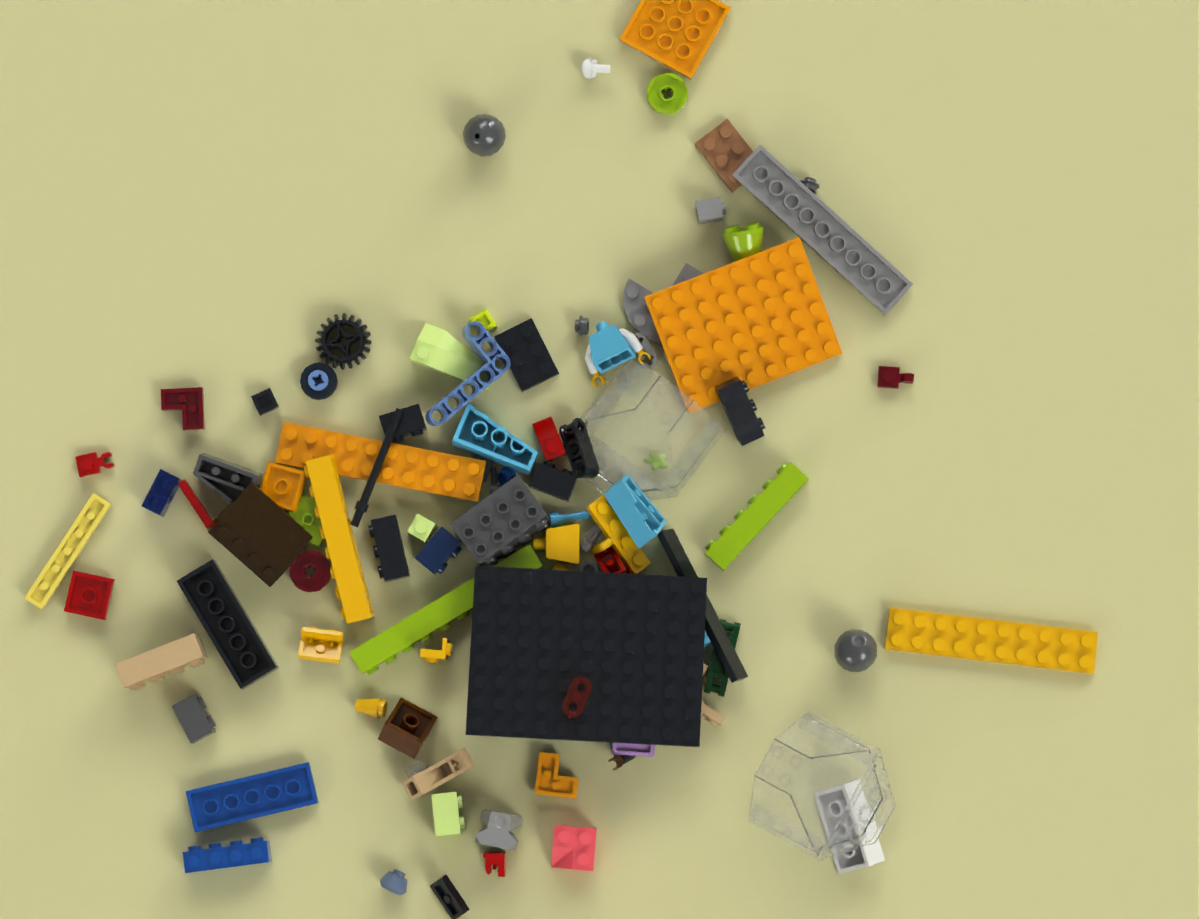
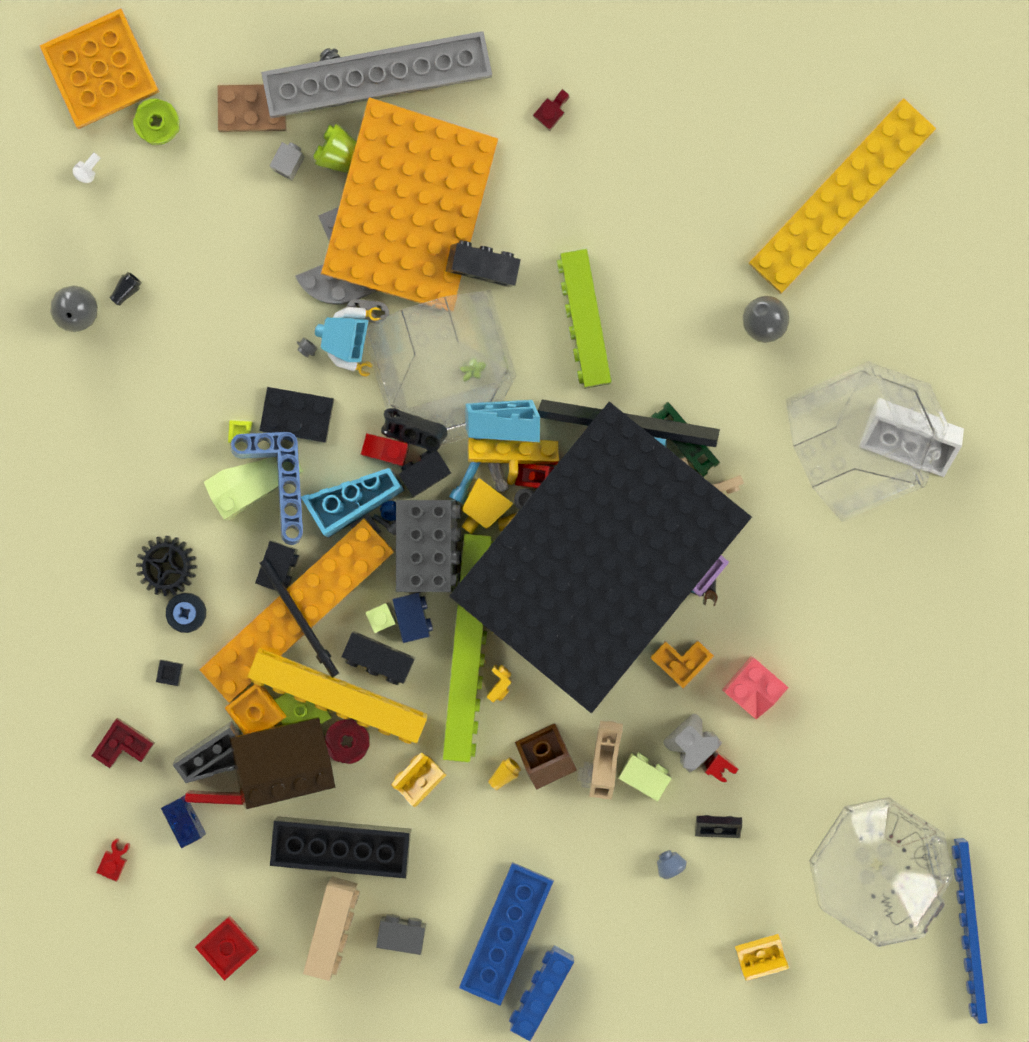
camera: 60 degrees left, 5 degrees up
(68, 551) = (174, 938): light yellow plate -> none
(529, 161) = (125, 288): none -> black cone
(576, 697) = (631, 592): clear red plate -> none

